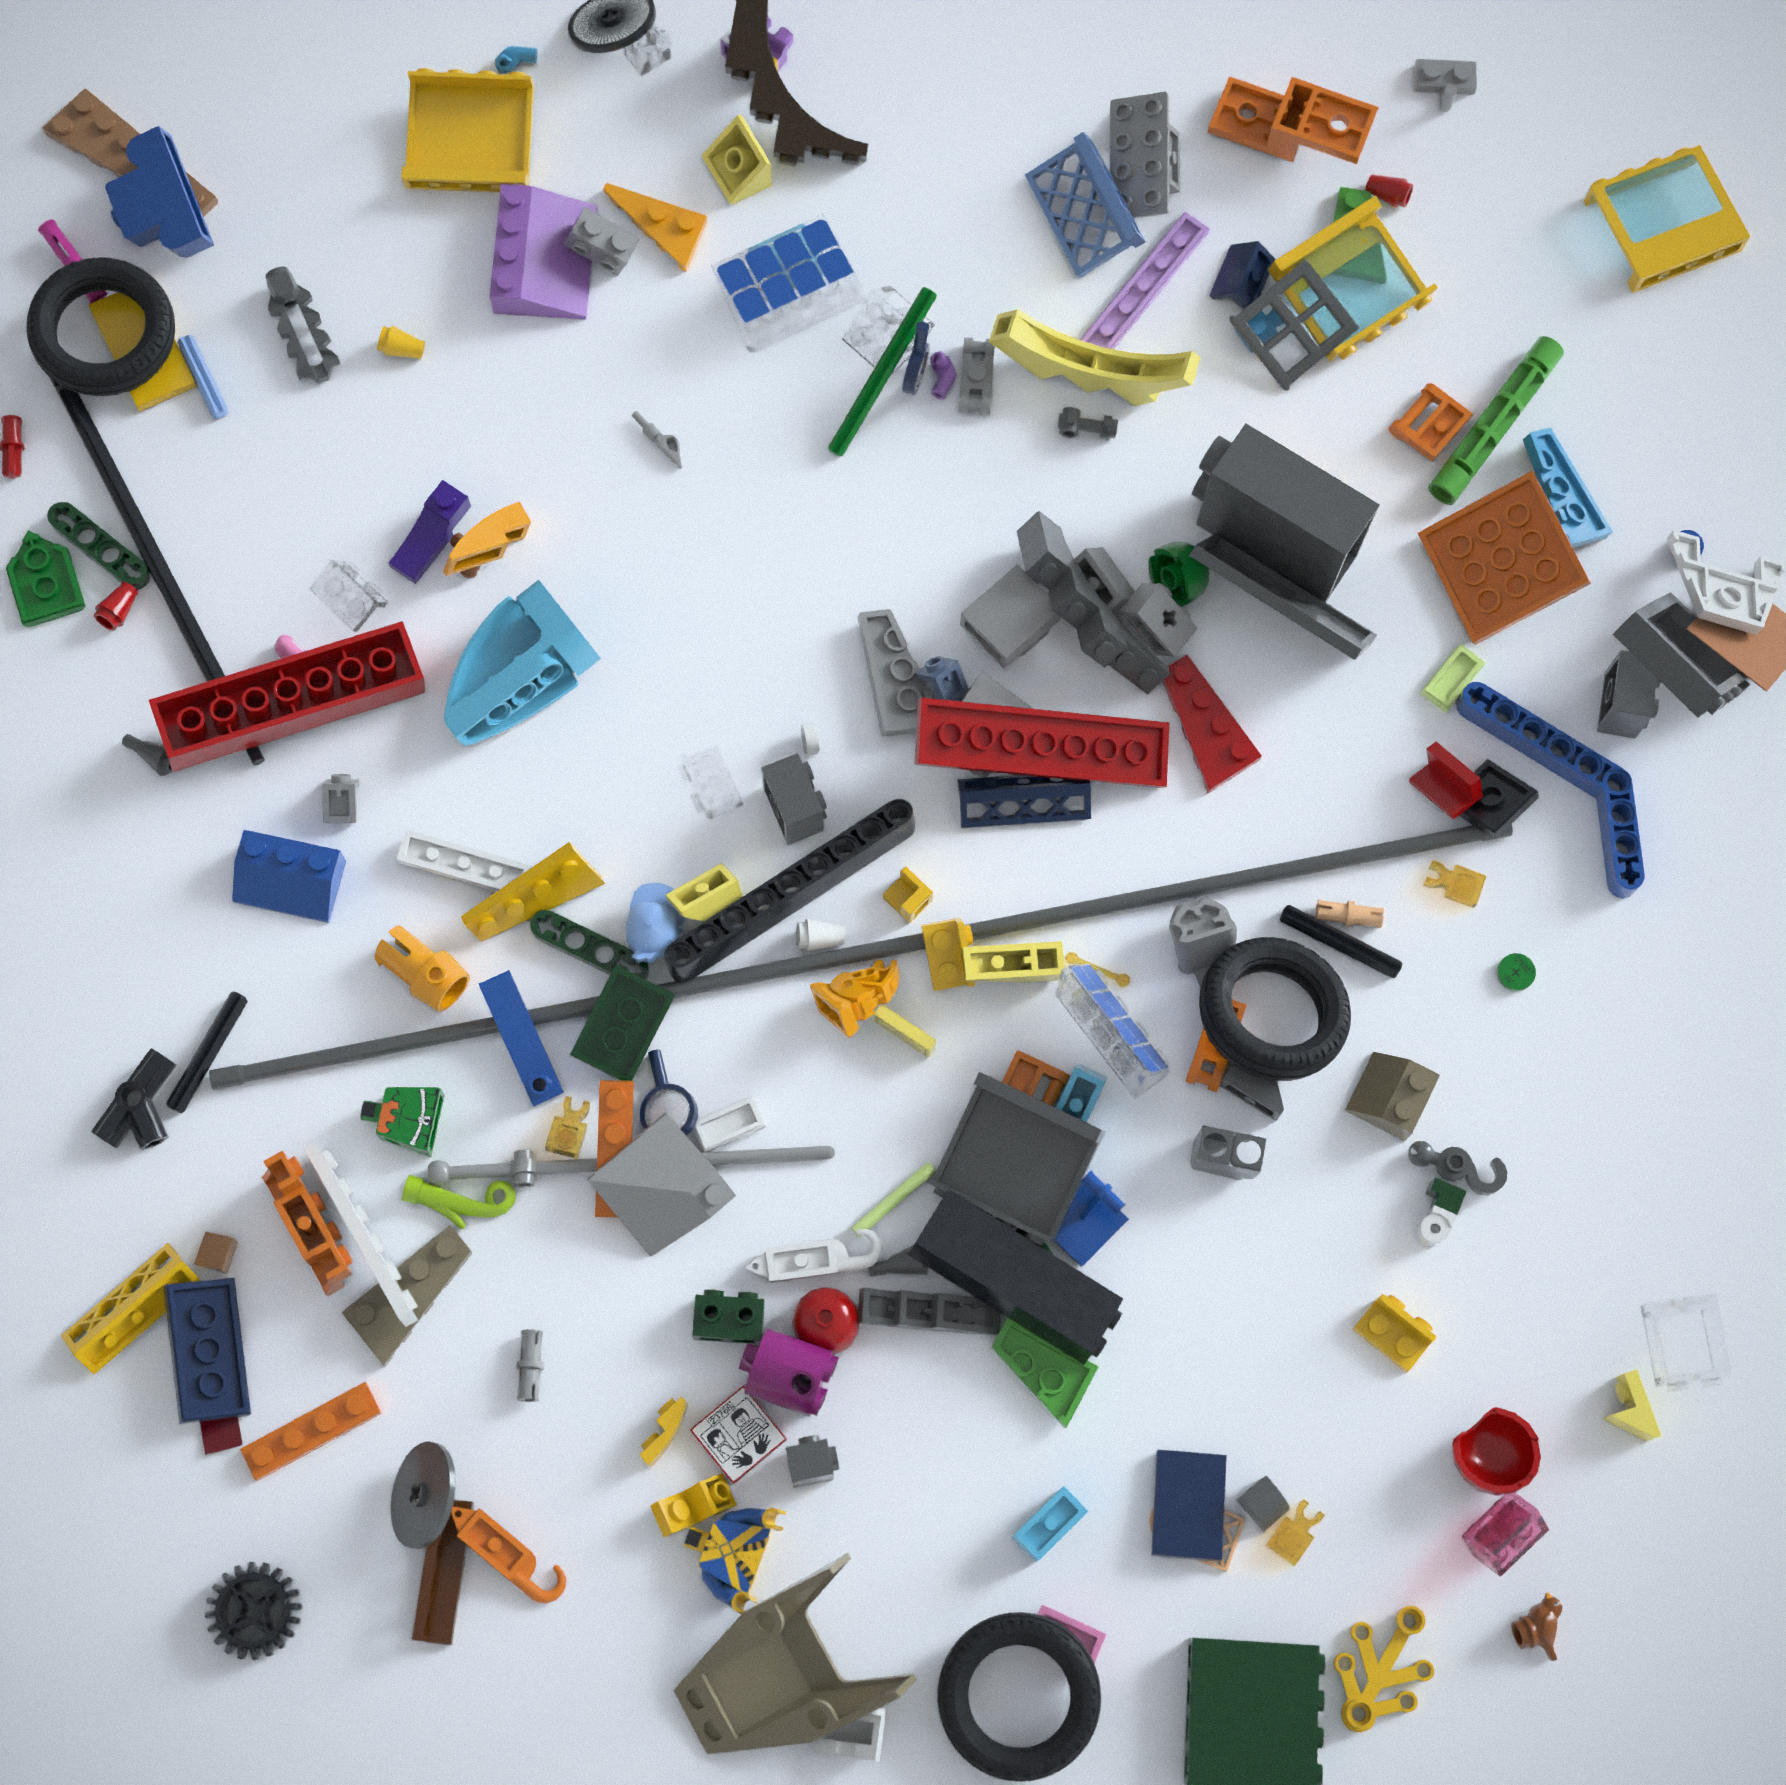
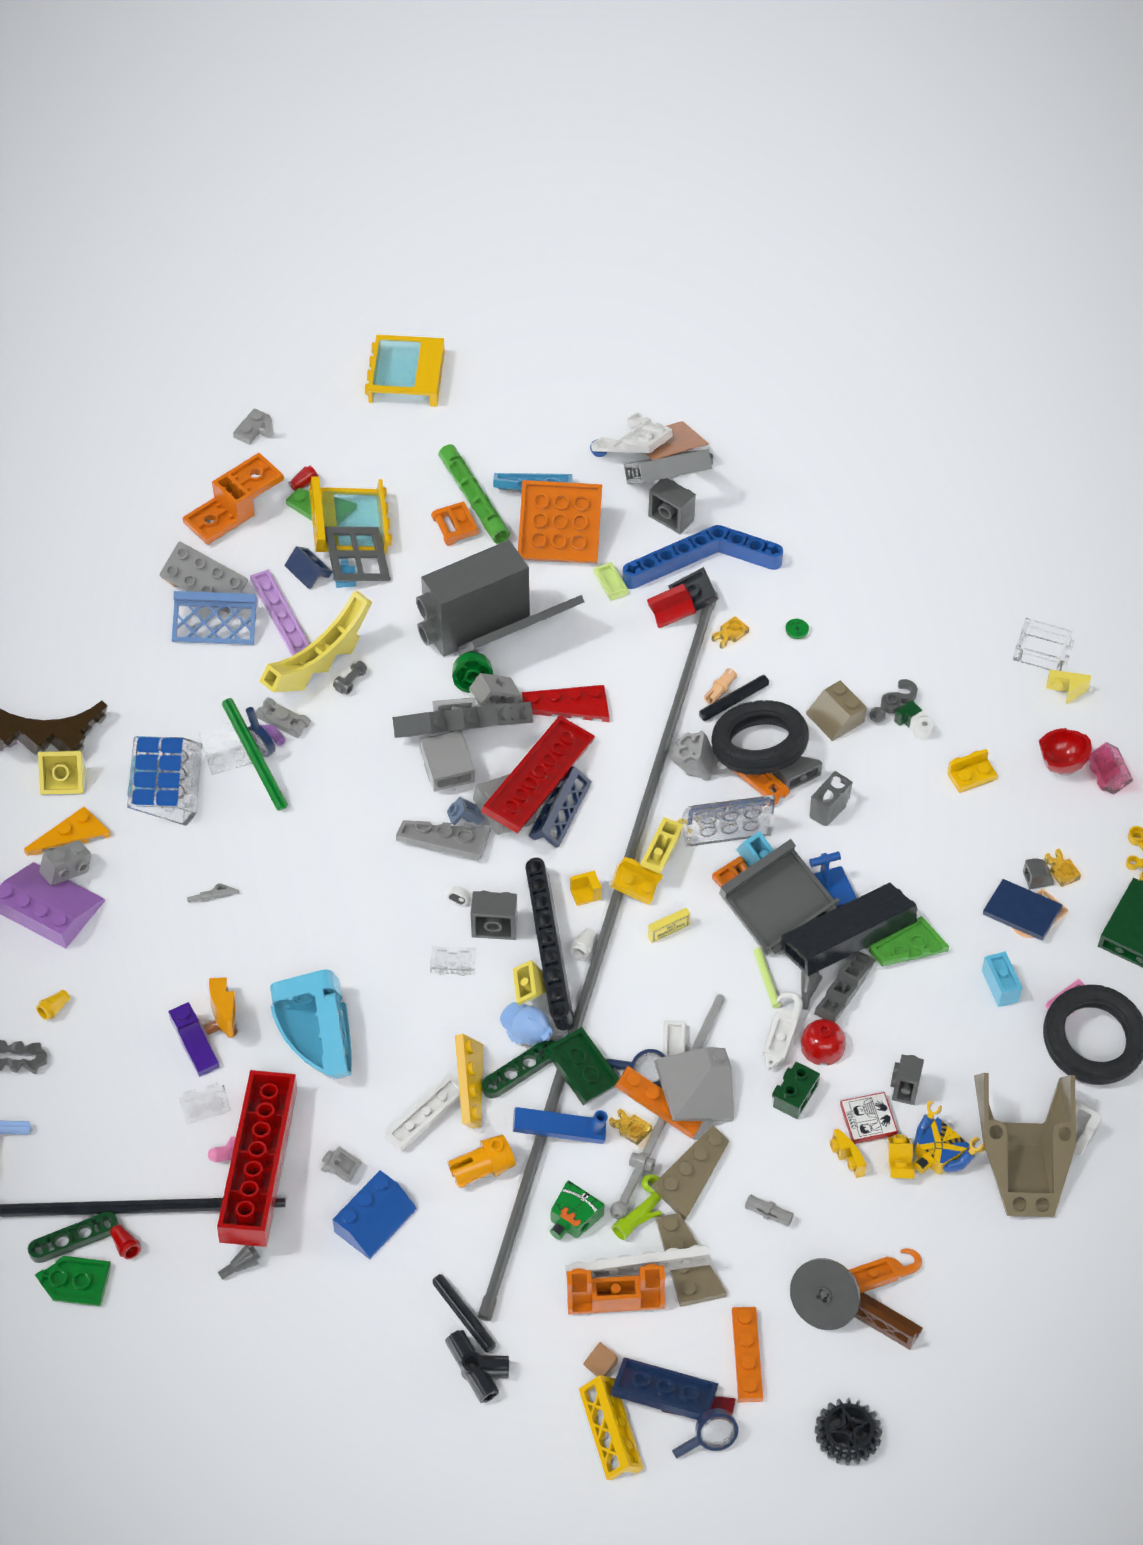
camera: 60 degrees left, 20 degrees down
(171, 1436) = (714, 1431): none -> piece
(534, 1237) = (689, 1174): none -> dark tan wing
(776, 1370) = (848, 1066): magenta cylinder -> none
(856, 995) = (634, 939): light orange piece -> none

